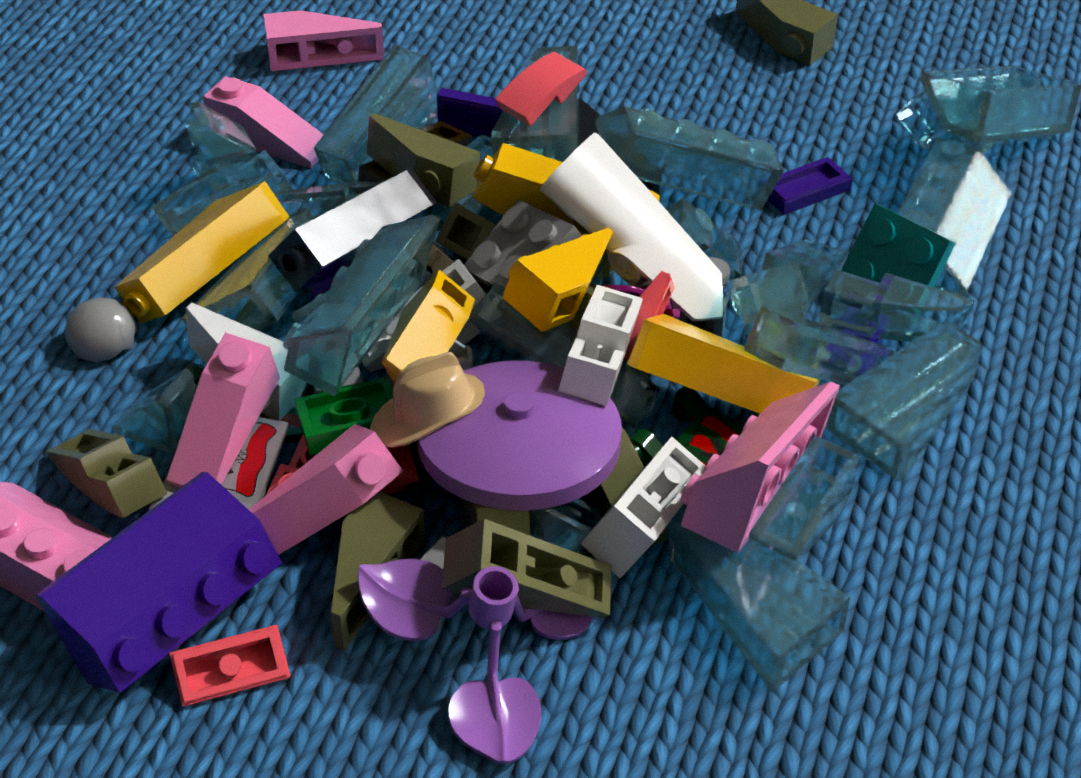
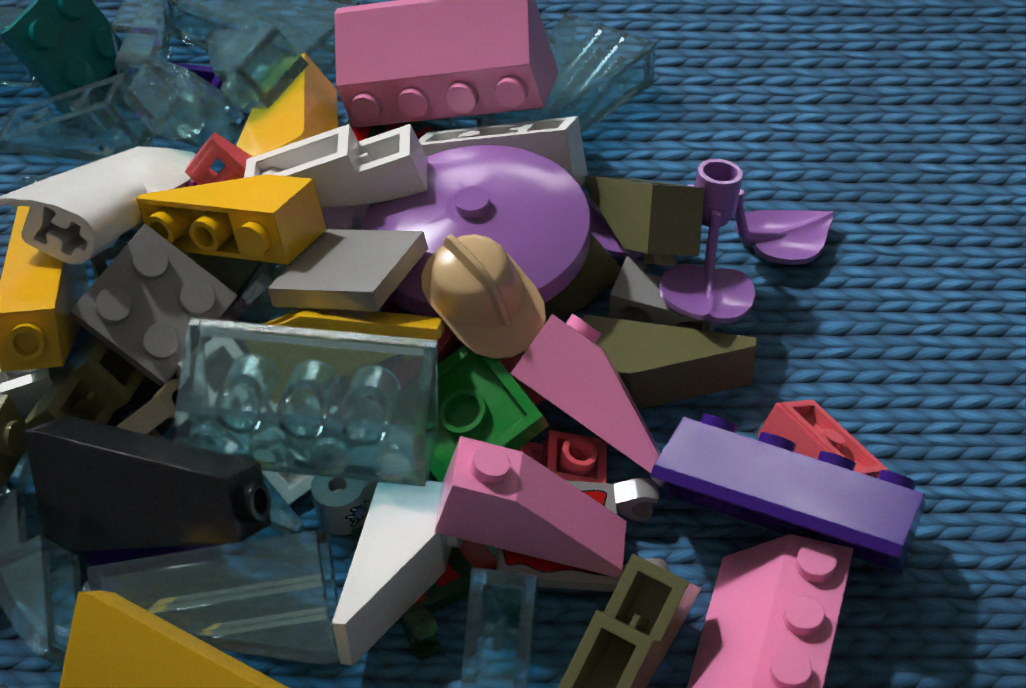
camera: 105 degrees left, 5 degrees up
(480, 328) = (348, 270): none -> light grey tile

